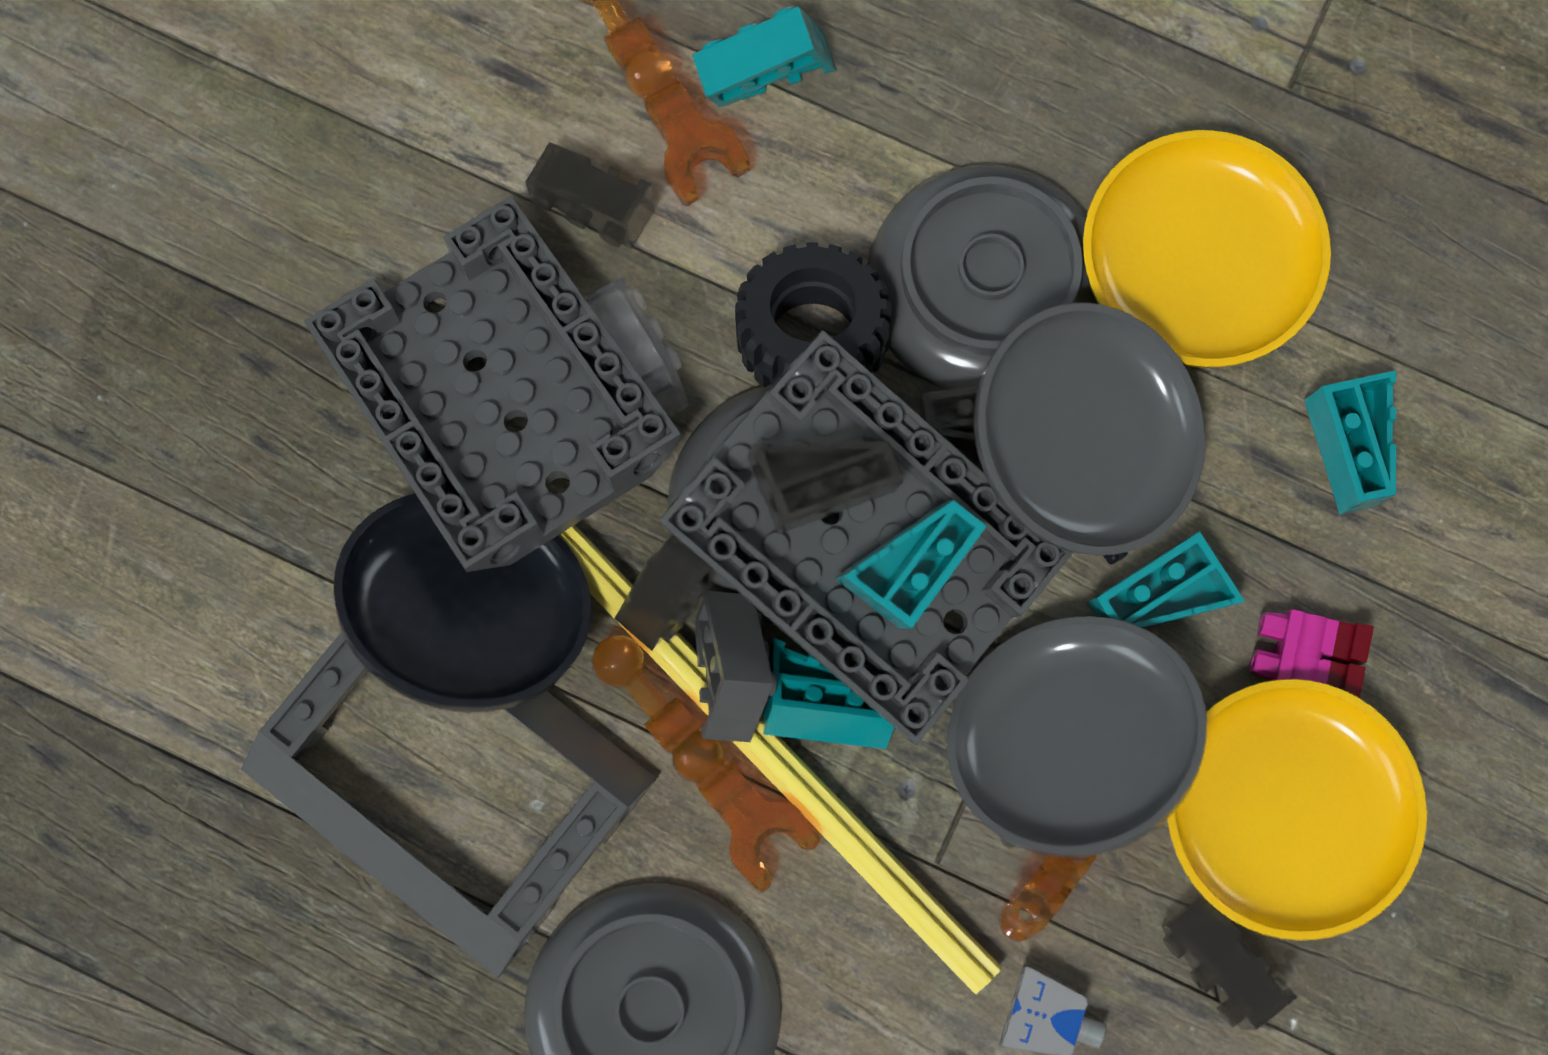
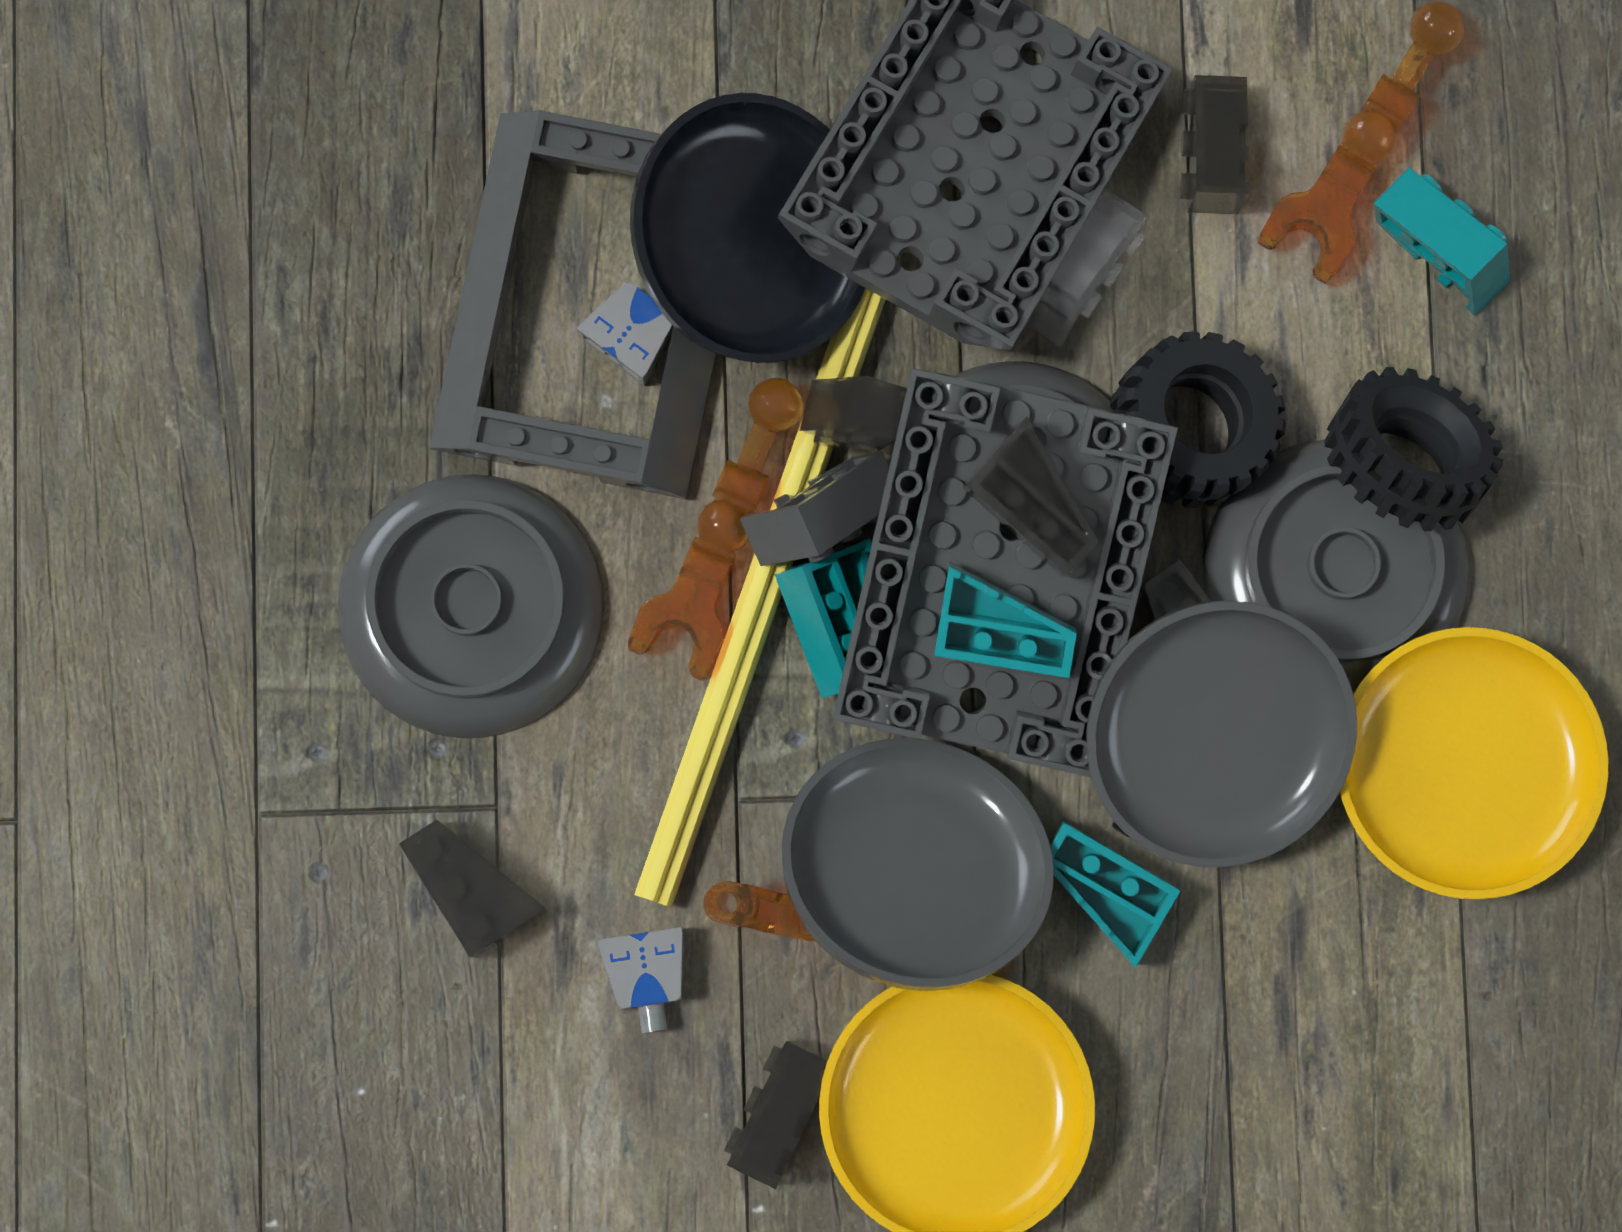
camera: 60 degrees right, 5 degrees up
(488, 752) = (628, 331): none -> light grey torso
(918, 136) = (1435, 422): none -> black tyre
(1313, 650) = (1124, 1047): dark pink hips -> none
(1356, 439) = (1358, 1003): teal wedge -> none

